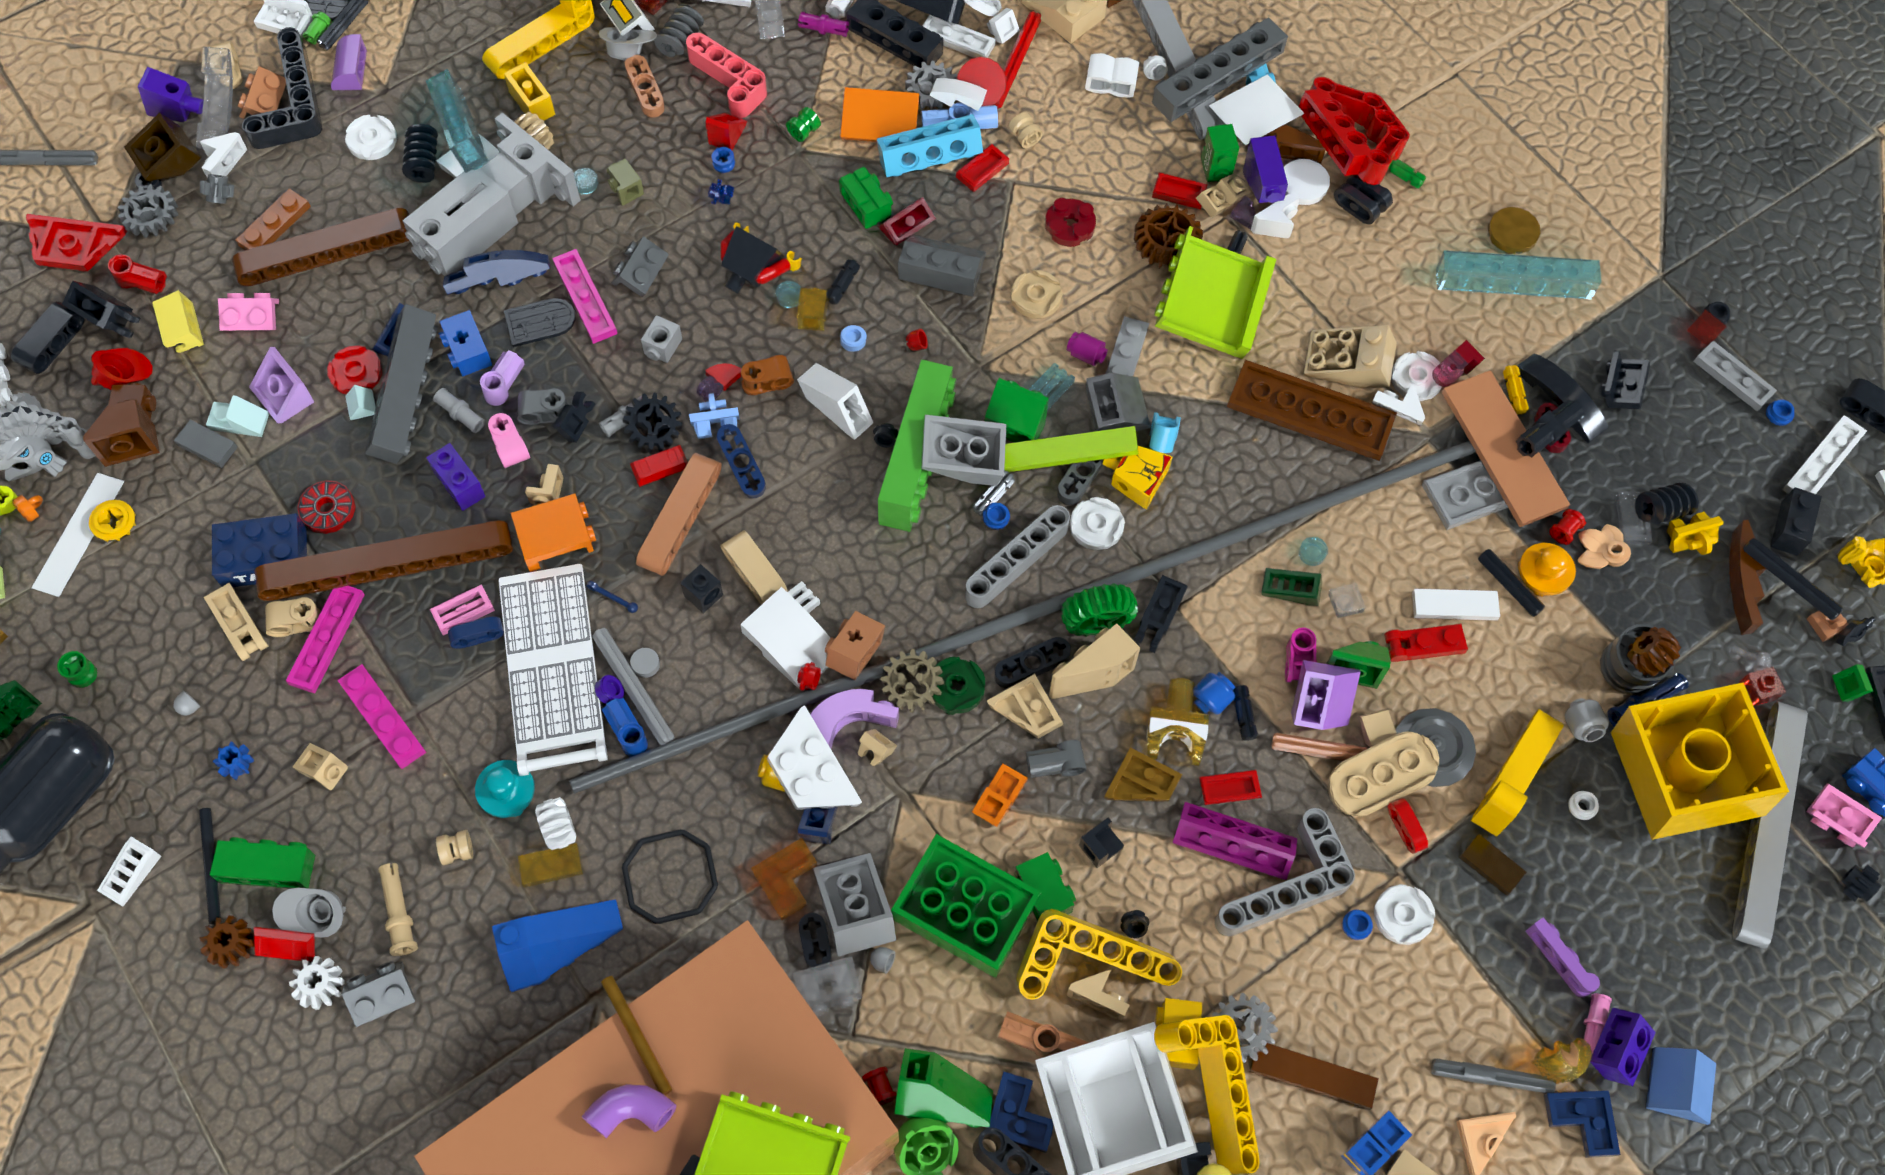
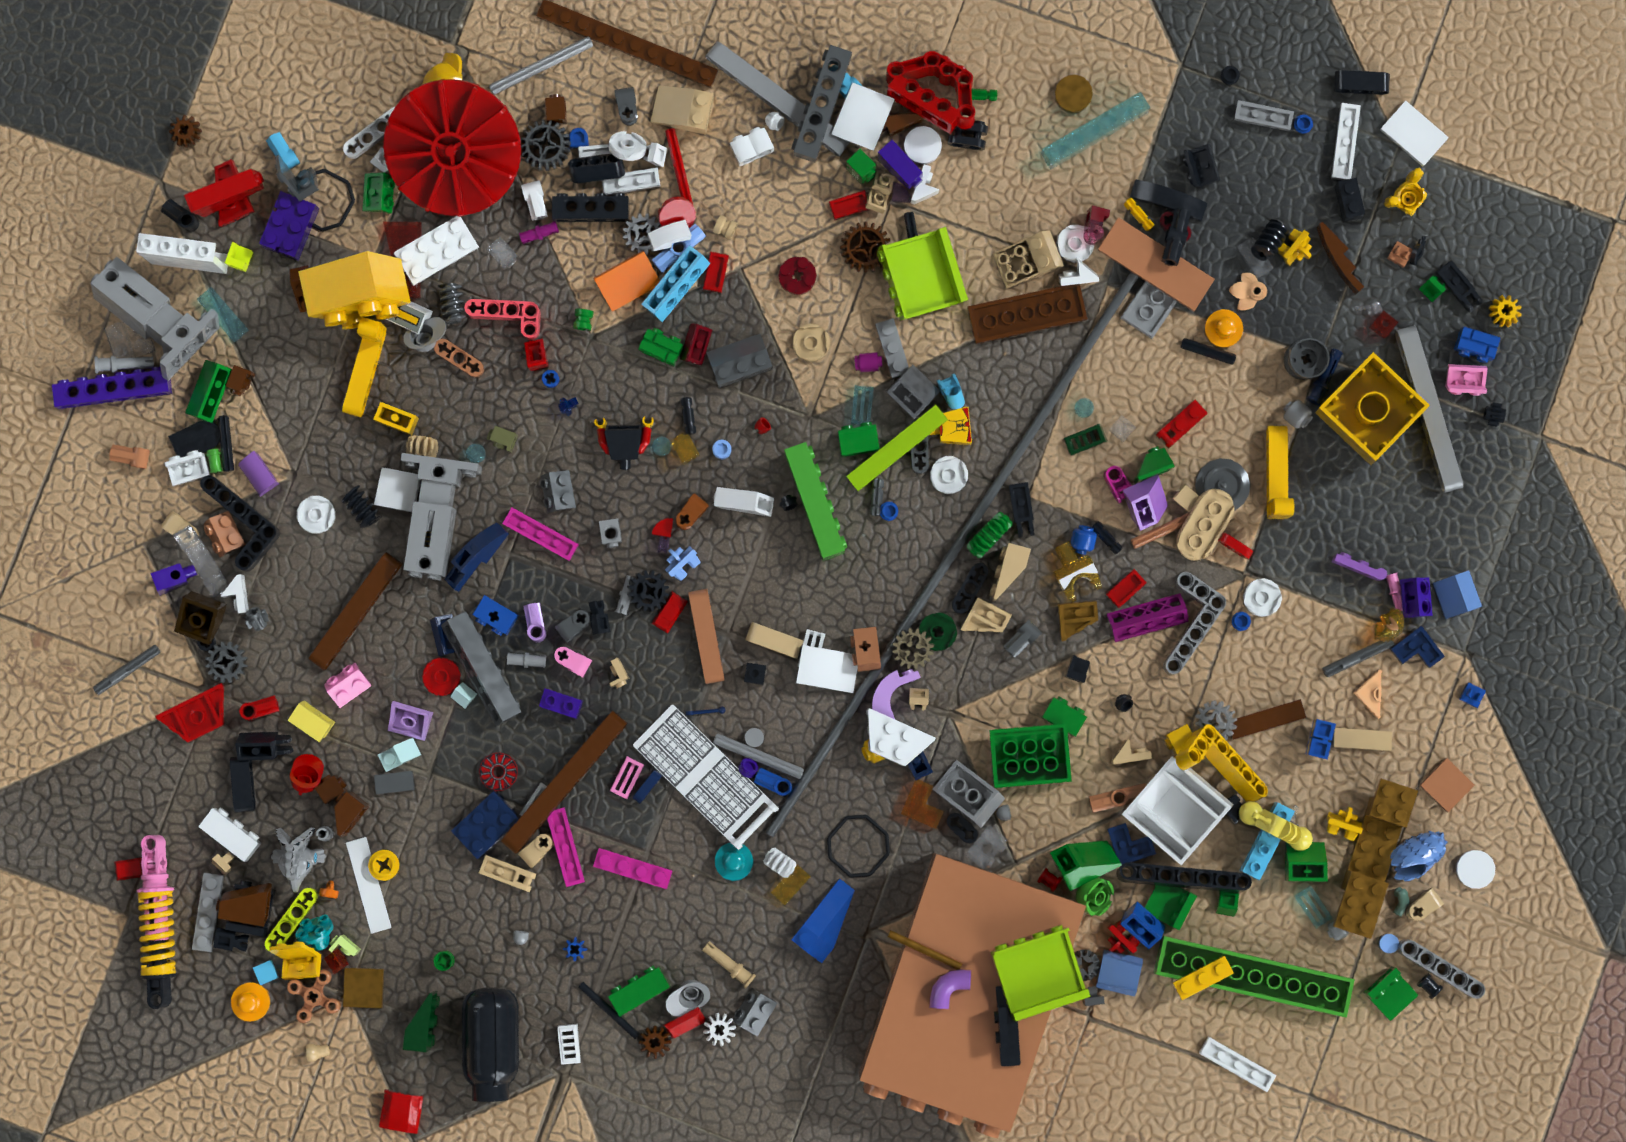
camera: 30 degrees left, 20 degrees up
(274, 221) = (307, 615): plate -> none
(320, 766) = (623, 919): tan bracket -> none
(454, 847) = (737, 908): tan wheel -> none
(457, 121) = (376, 476): clear light blue brick -> none
(539, 321) = (524, 568): black window -> none
(552, 529) = (643, 697): orange panel -> none
(739, 440) = (727, 590): dark blue beam -> none
(809, 676) = (854, 685): red plate -> none
(964, 449) = (848, 489): light grey slope -> none
(1000, 795) = (1004, 679): orange slope -> none
(1012, 567) = (919, 520): light grey beam -> none
(1091, 947) = (1112, 734): yellow beam -> none
(1455, 604) = (1184, 387): white tile -> none
(1493, 865) = (1293, 536): dark brown tile -> none
(1568, 525) = (1220, 292): red bush -> none
(1589, 800) = (1329, 467): white plate -> none
(1654, 651) = (1314, 357): reddish brown gear -> none
(1707, 328) = (1229, 91): clear red plate -> none
(1793, 579) = (1366, 247): black axle -> none

